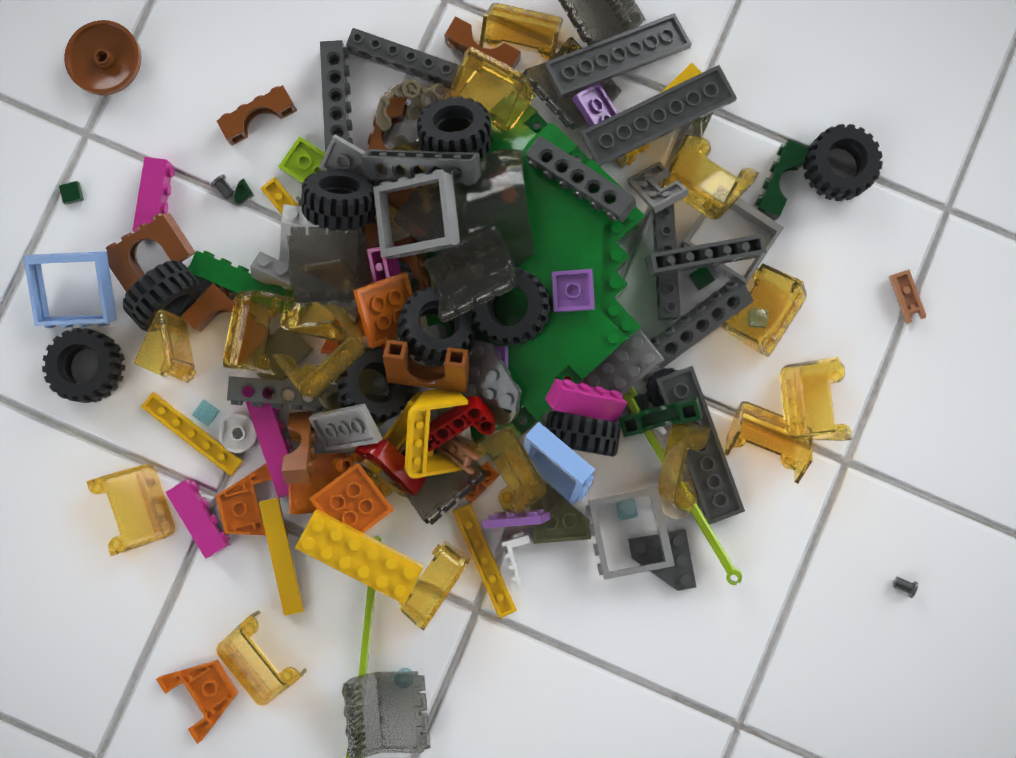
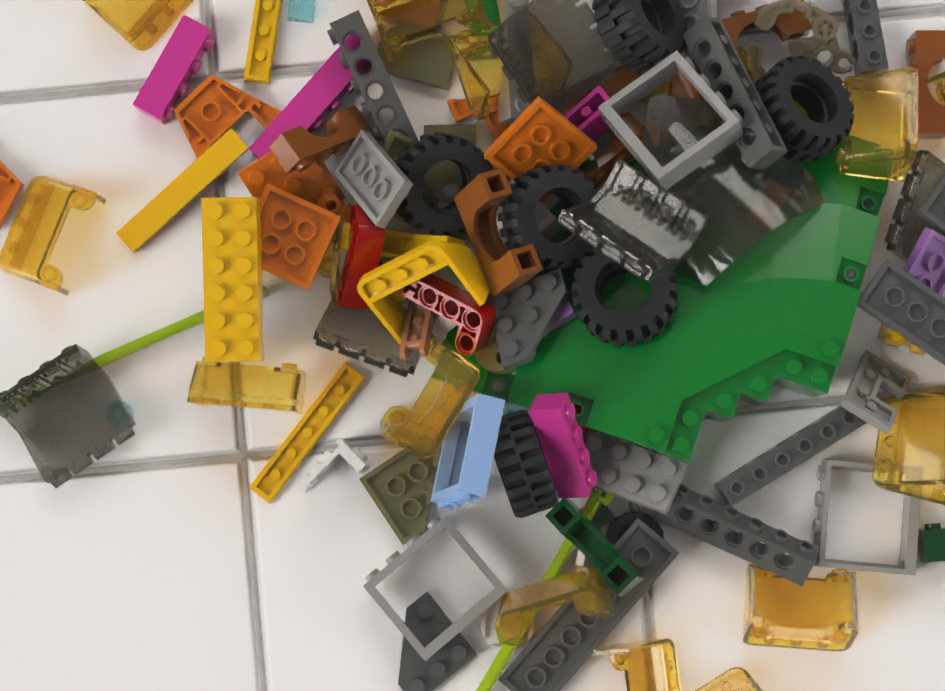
camera: 65 degrees right, 0 degrees up
(230, 441) = (285, 52): white plate -> none
(314, 379) = (409, 110): clear yellow windscreen -> none
(491, 474) = (411, 383): orange slope -> none
(500, 519) = (381, 446): medium lavender plate -> none
(543, 150) = (837, 226): dark grey brick -> none
(573, 290) = (685, 355): medium lavender plate -> none
(626, 509) = (462, 569): clear light blue piece -> none
(701, 278) = (796, 508): dark green tile -> none
(705, 255) = (822, 494): dark grey brick -> none
(757, 318) = (785, 604): clear light blue piece -> none

